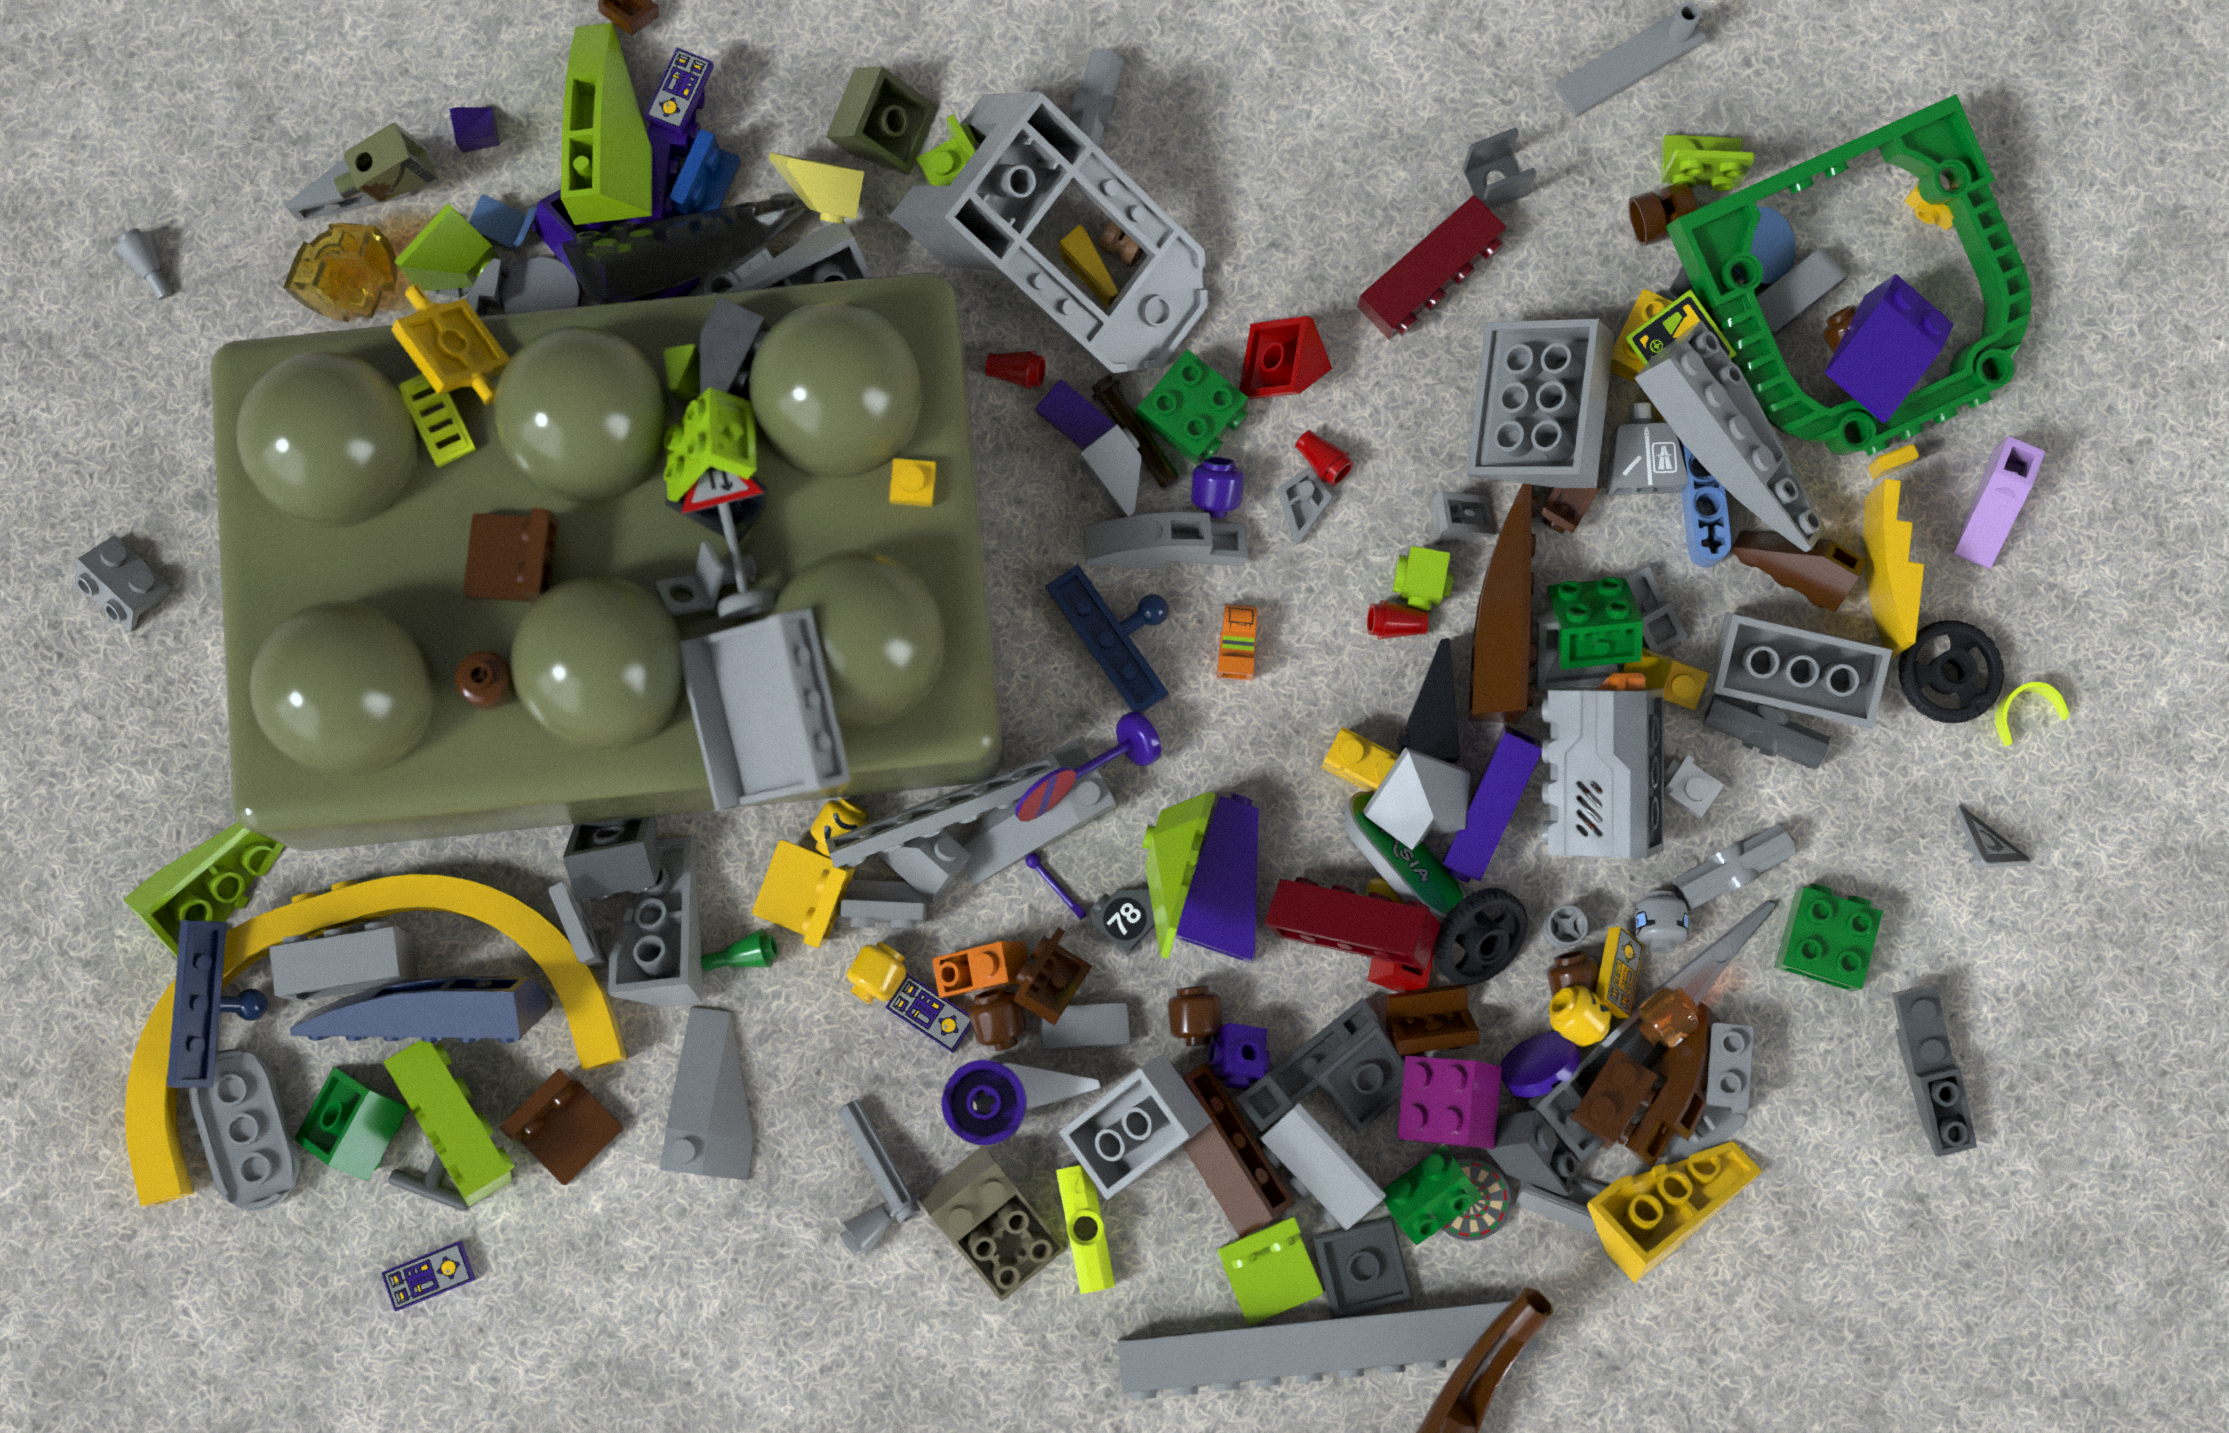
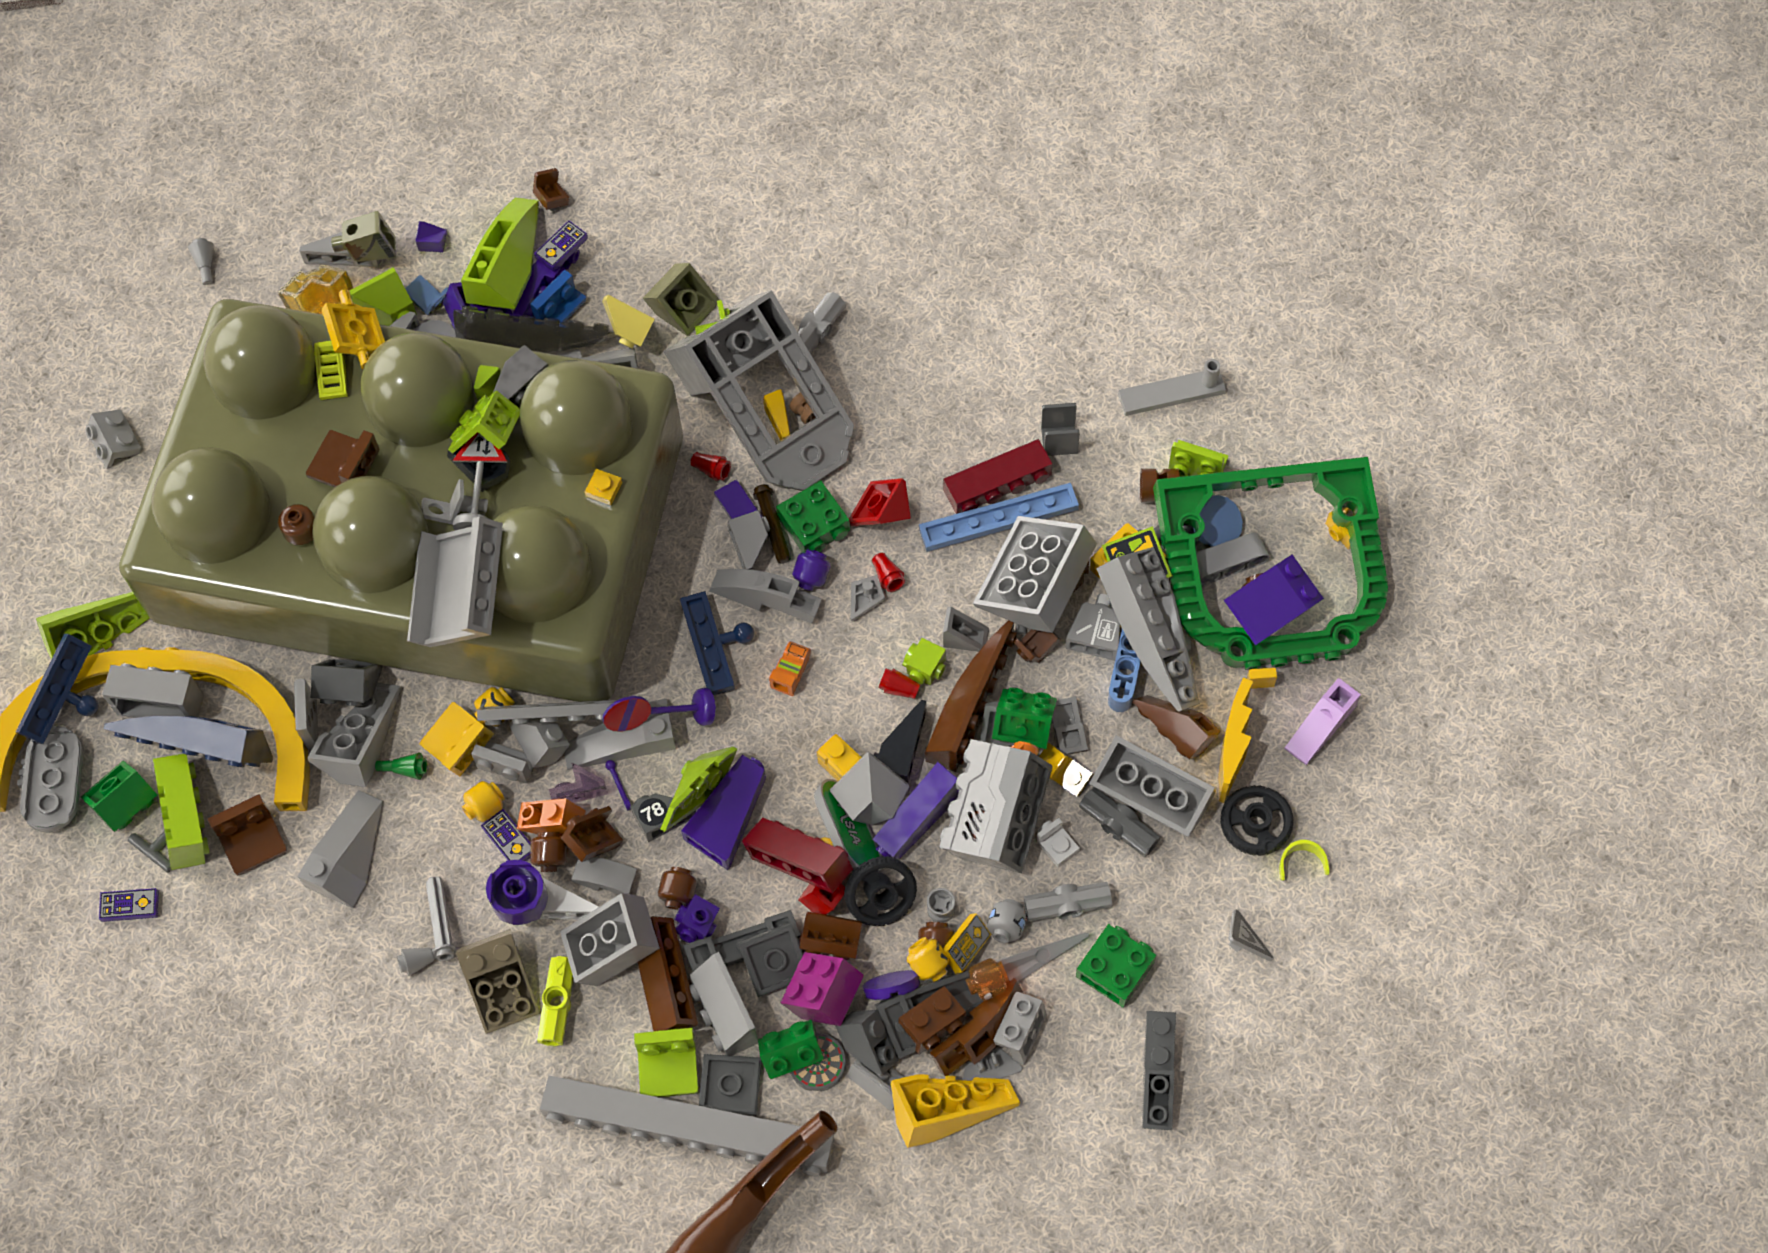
camera: 20 degrees right, 15 degrees down
(1013, 905) = (586, 786): none -> clear purple slope
(1451, 327) = (997, 517): none -> medium blue plate

